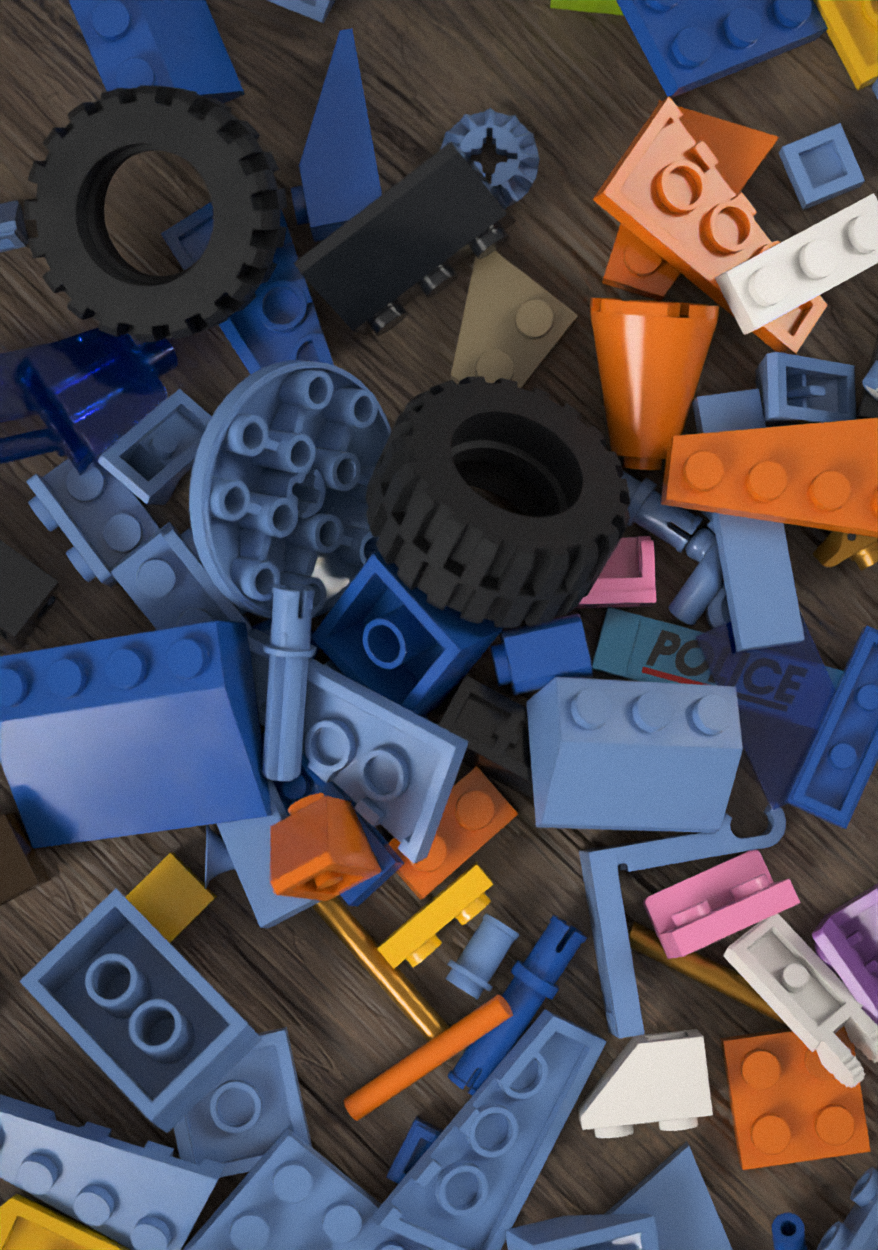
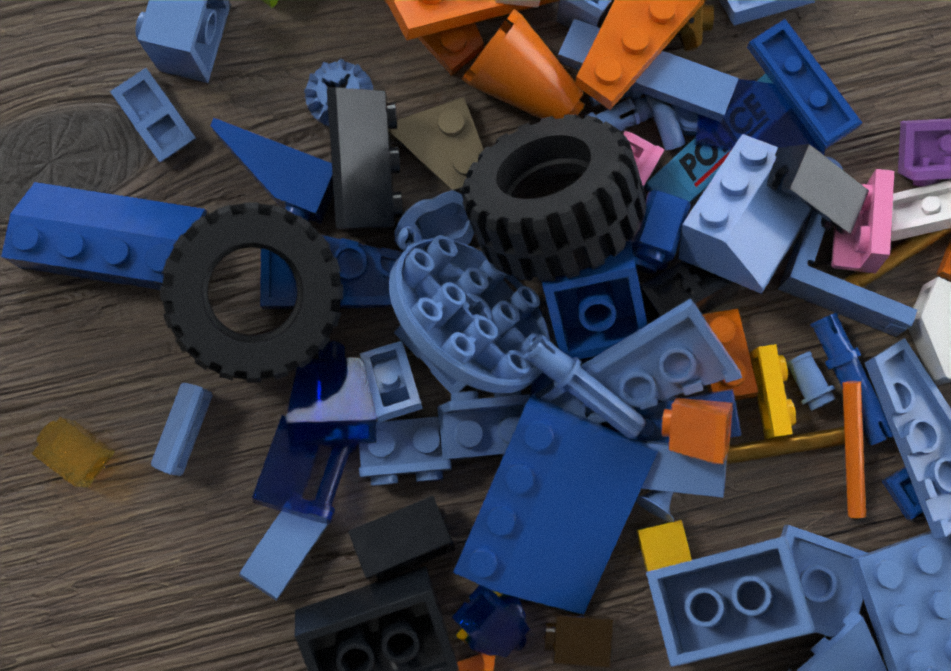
camera: 70 degrees left, 5 degrees down
(388, 370) = (434, 217): none -> medium blue arm
(715, 819) = (819, 186): none -> hinge

